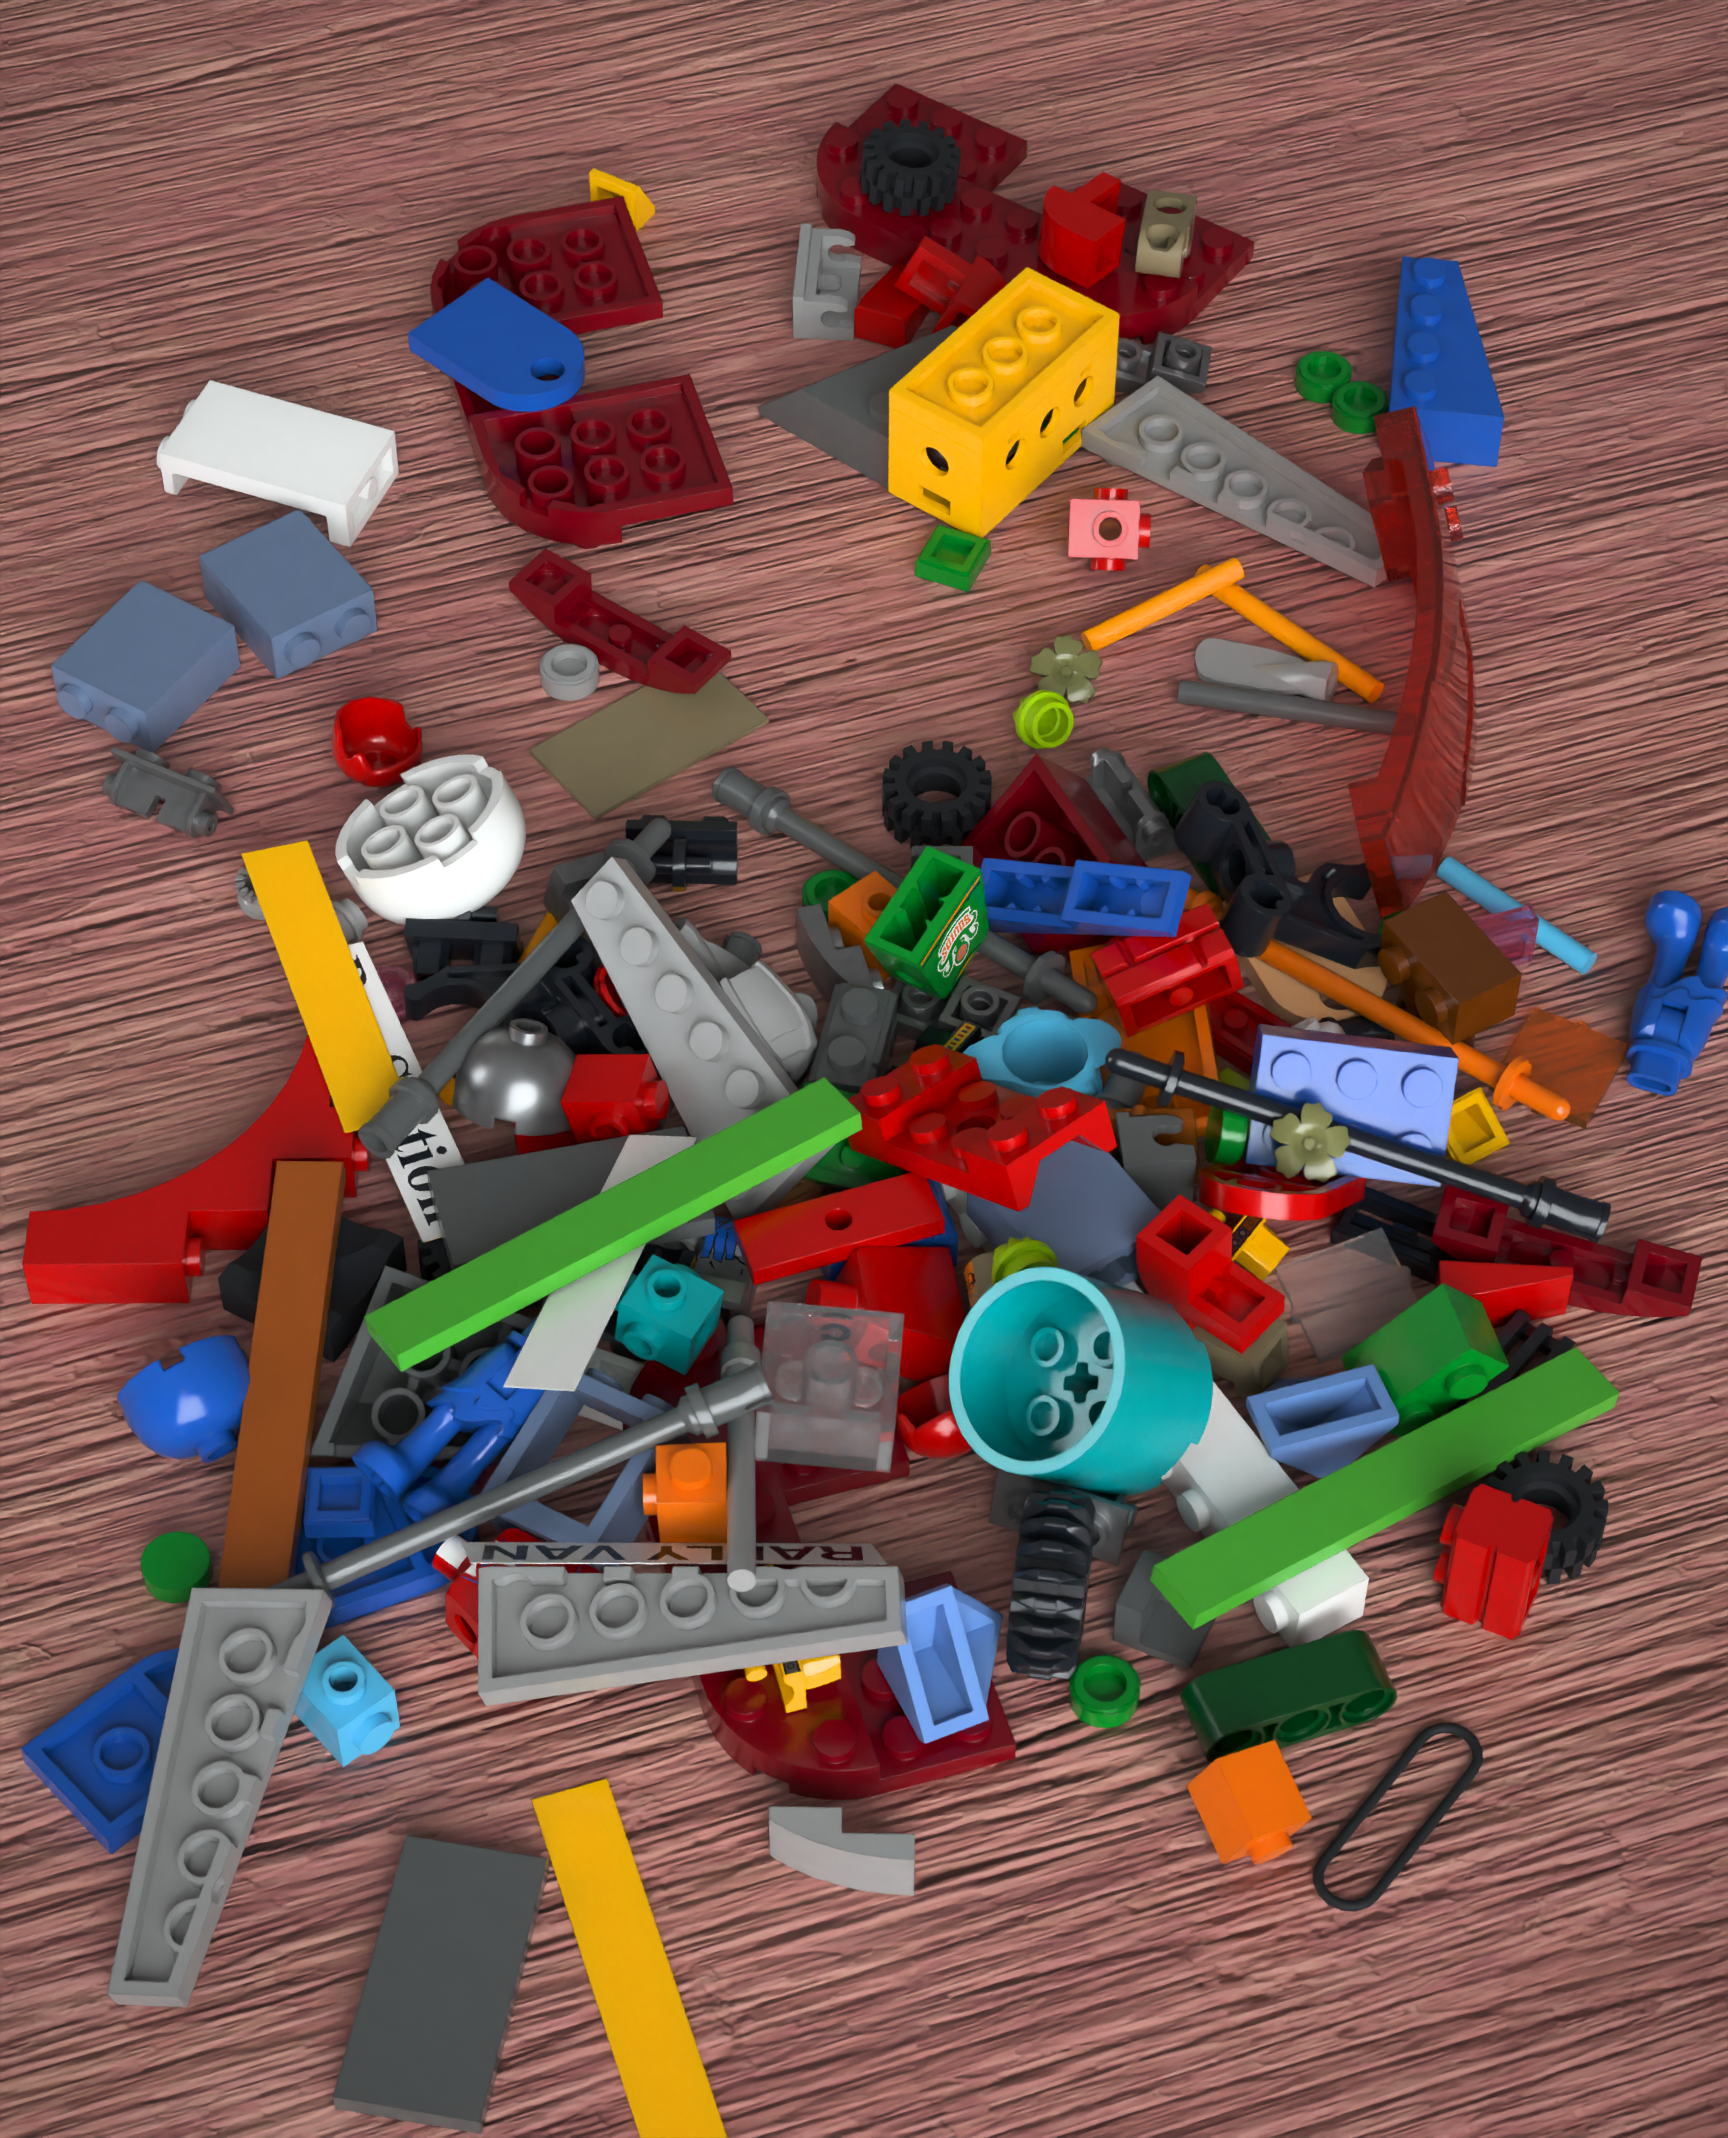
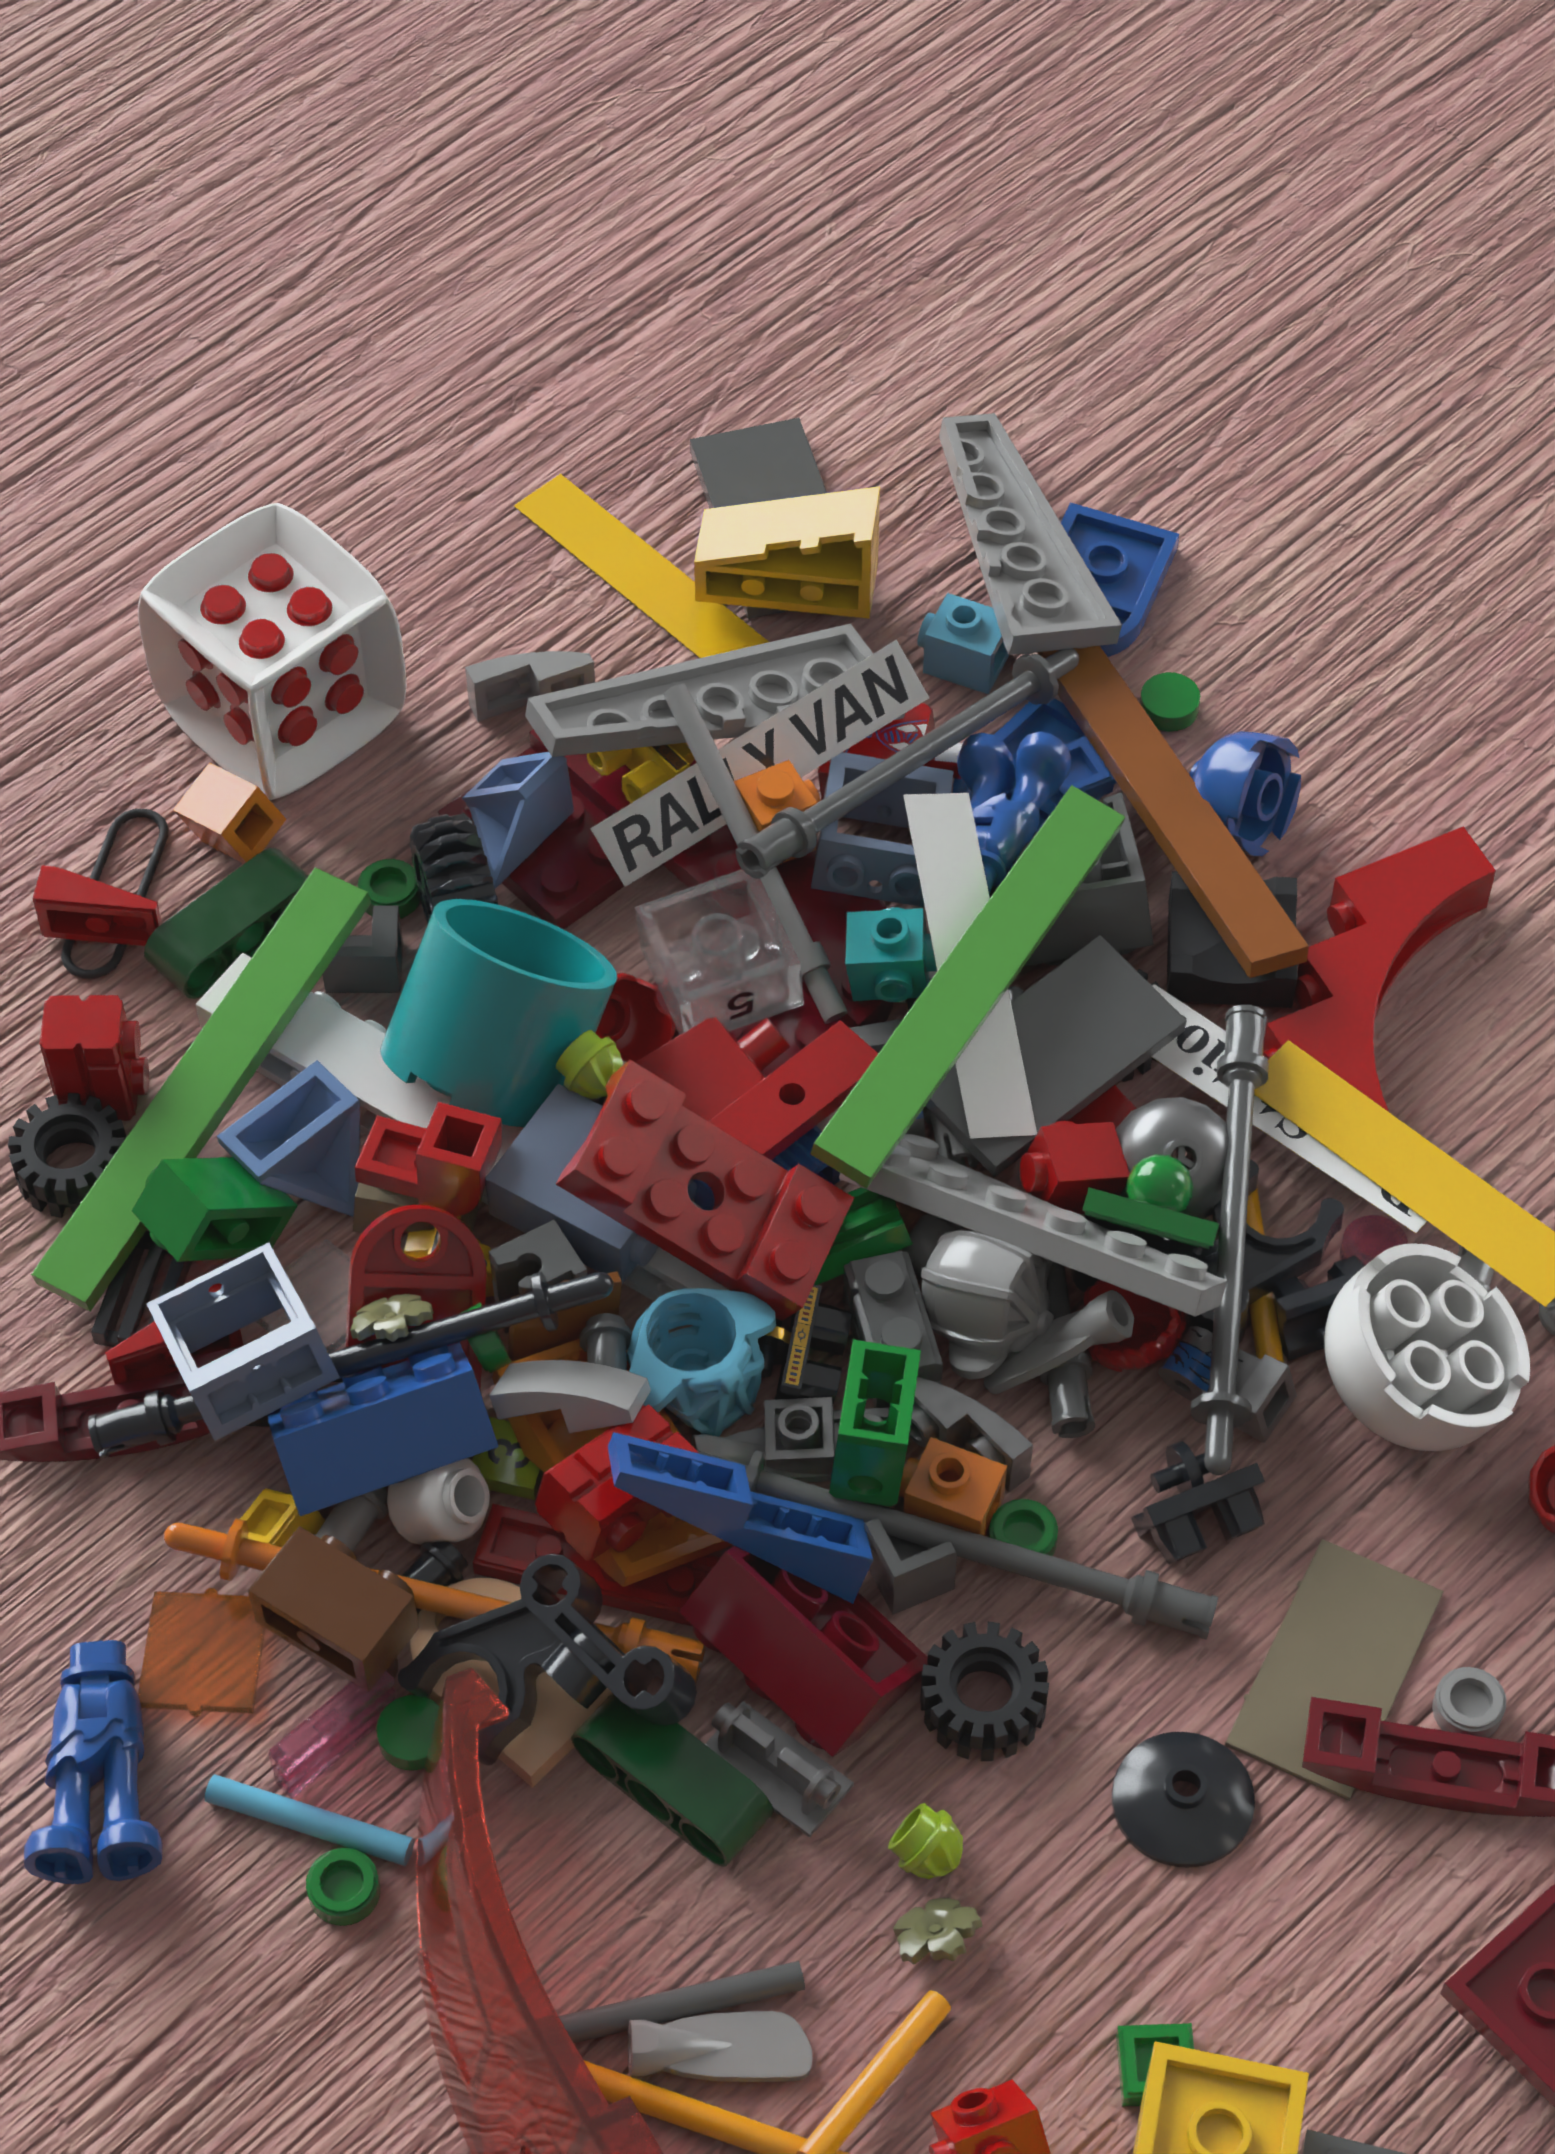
camera: 155 degrees right, 5 degrees up
(474, 1842) = (792, 553): none -> yellow wedge
(586, 1001) = (1157, 1194): none -> green tile
(825, 700) = (1177, 1827): none -> black dish
(1132, 1920) = (273, 649): none -> white piece
(1160, 1023) = (584, 1391): none -> light grey slope
(1440, 1755) = (91, 910): none -> red slope
(1459, 1111) = (259, 1374): none -> sand blue window
(1507, 862) = (343, 1886): none -> green tile

